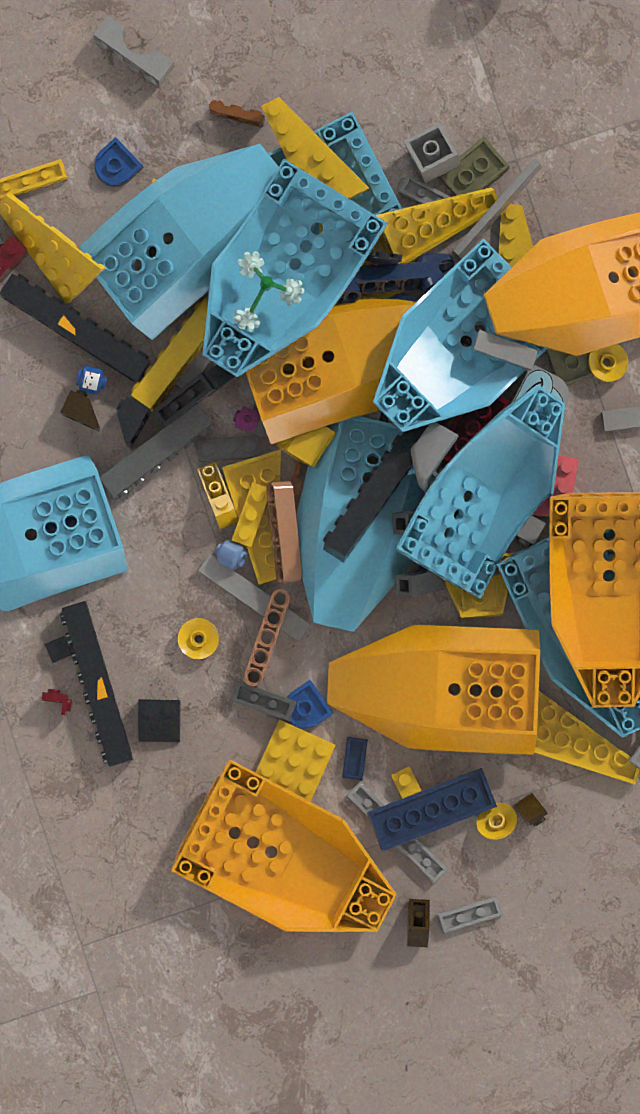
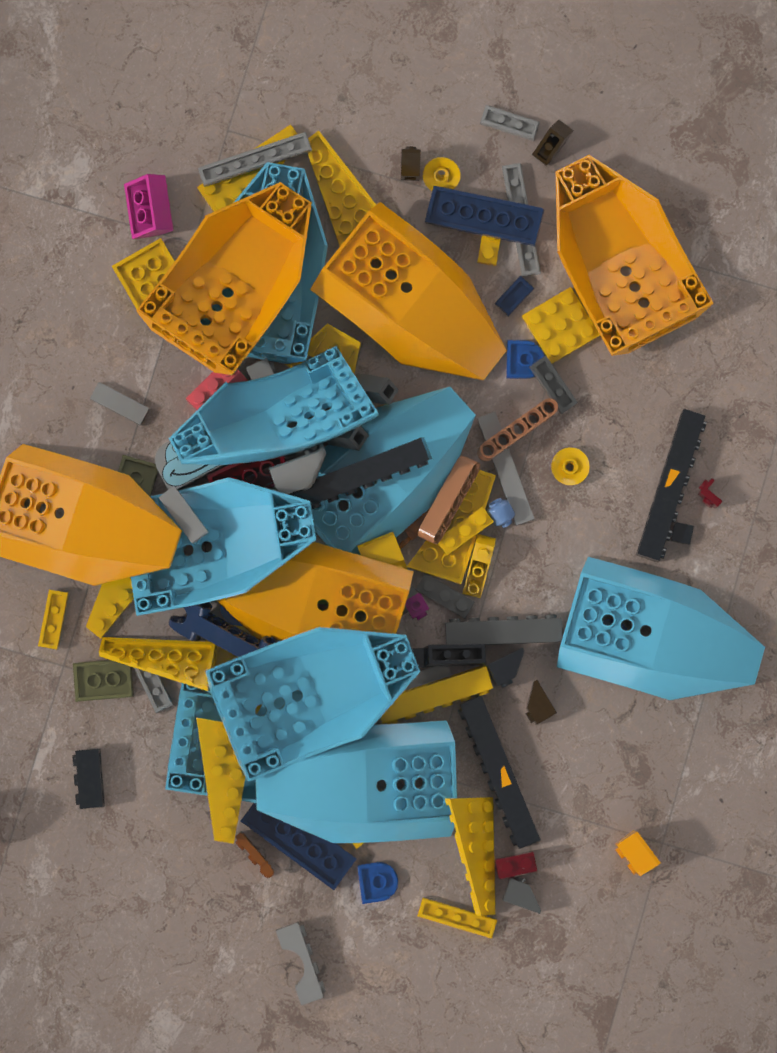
camera: 140 degrees left, 0 degrees up
(91, 380) = (515, 722): head -> none
(159, 720) = (642, 426): black slope -> none
(179, 148) = (316, 855): none -> dark blue plate
(290, 291) = (319, 672): light aqua plant -> none
(382, 258) = (224, 653): black dish -> none
(424, 79) = (89, 778): none -> black brick
(432, 153) = (125, 714): light grey brick -> none
(497, 208) = (106, 635): light grey tile -> none
(554, 192) = (53, 619): none -> yellow plate
(617, 363) = (106, 449): yellow dish -> none

